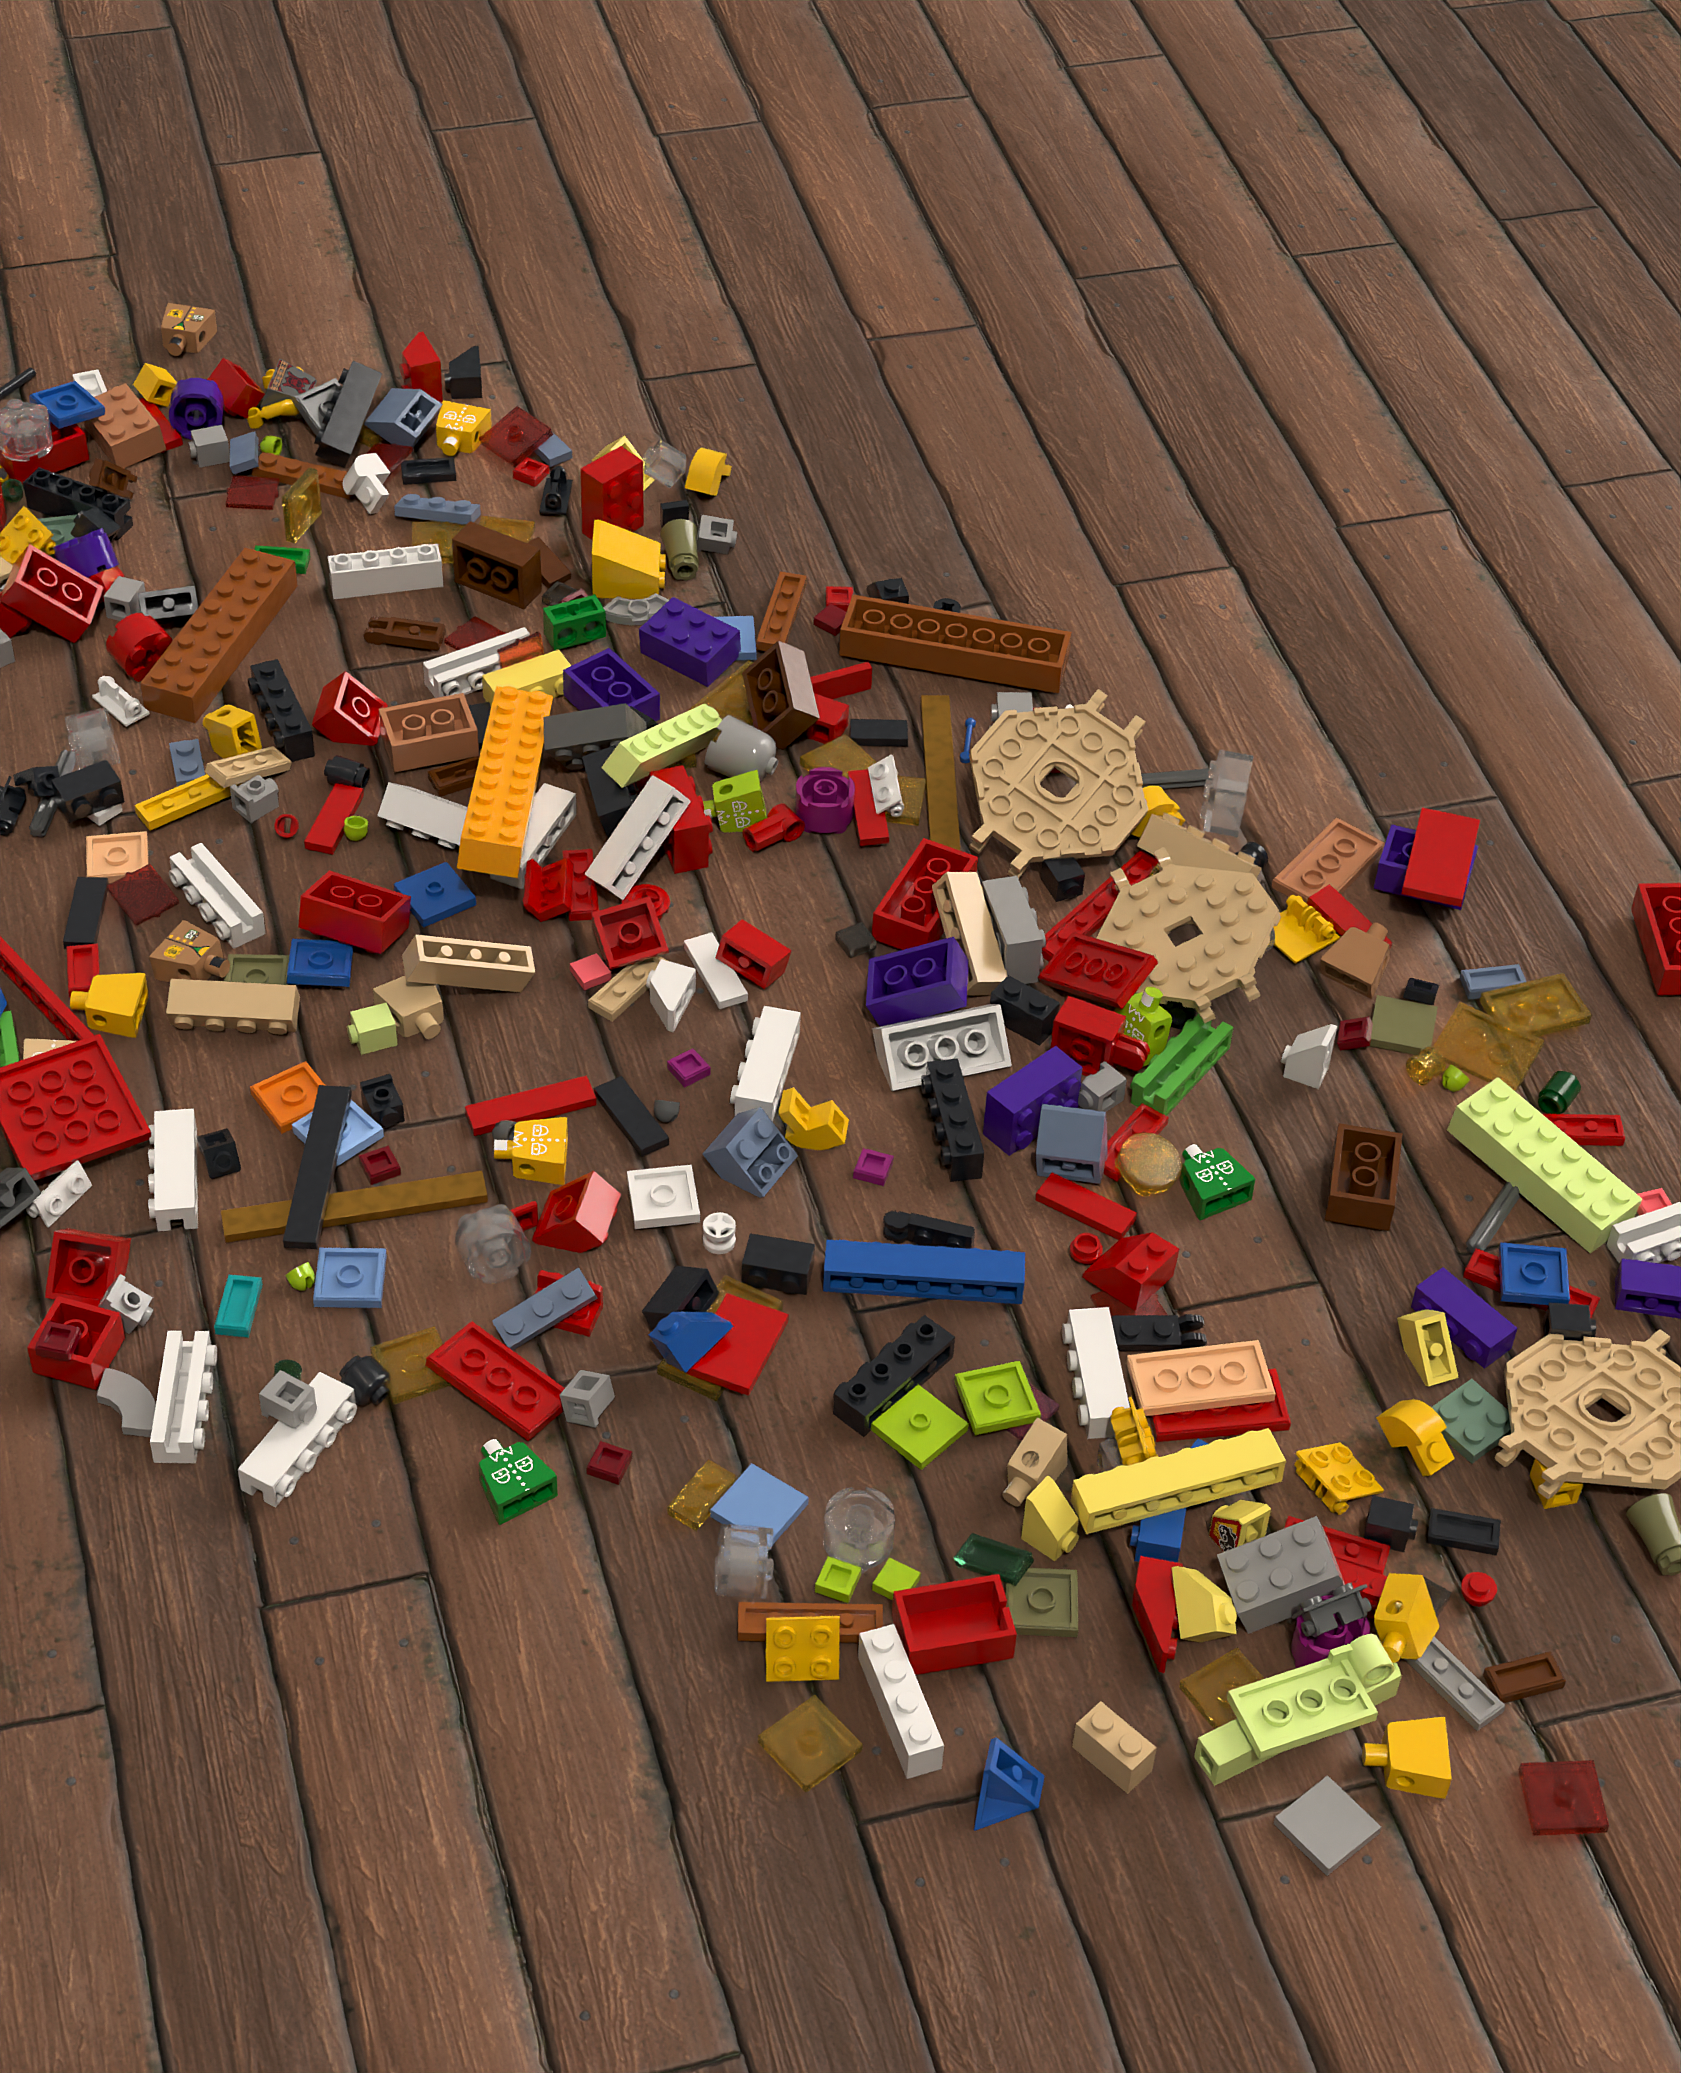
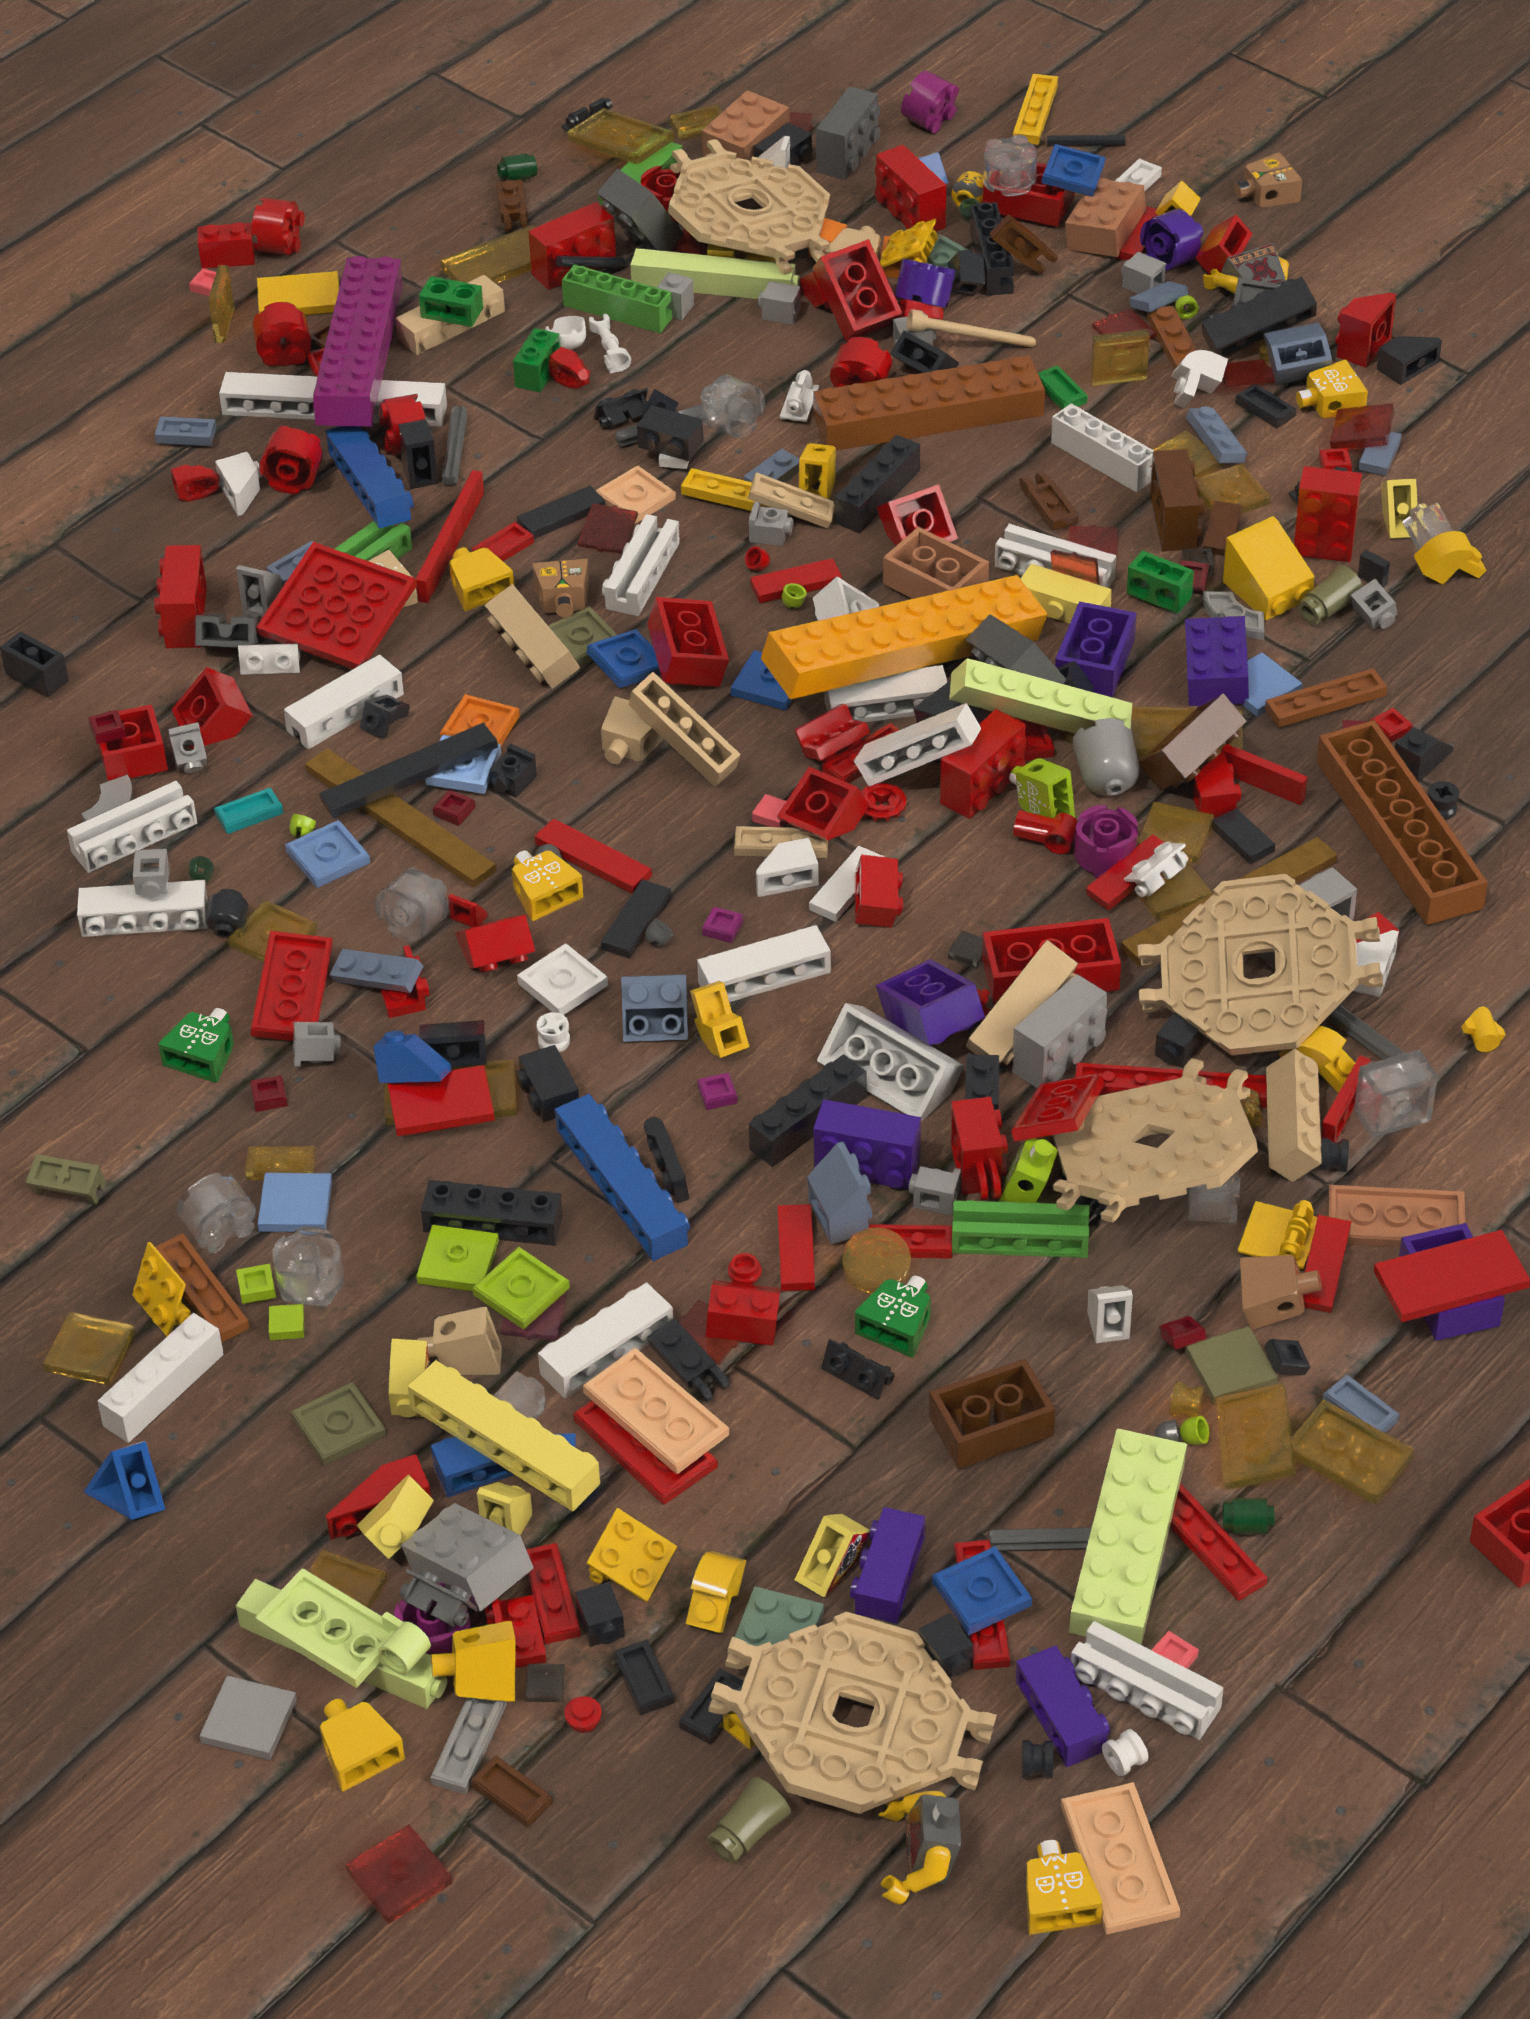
camera: 60 degrees right, 0 degrees up
(133, 581) = (918, 321): none -> tan piece
(346, 772) = (848, 557): black brick -> none
(372, 1028) = (583, 723): yellowish green brick -> none
(596, 1658) = (66, 1177): none -> olive hinge
(954, 1624) = (255, 1370): red piece -> none
(992, 1558) = (351, 1368): clear green tile -> none
(1114, 1747) = (214, 1534): tan brick -> none
(1132, 1434) = (541, 1393): yellow hinge -> none
(1191, 722) = (1484, 1030): none -> yellow piece
(1198, 817) = (1343, 1104): none -> red tile
(1246, 1235) = (856, 1369): none -> black hinge
(1449, 1093) = (1168, 1430): none -> flat silver hinge
(1523, 1501) = (698, 1719): none -> black tile

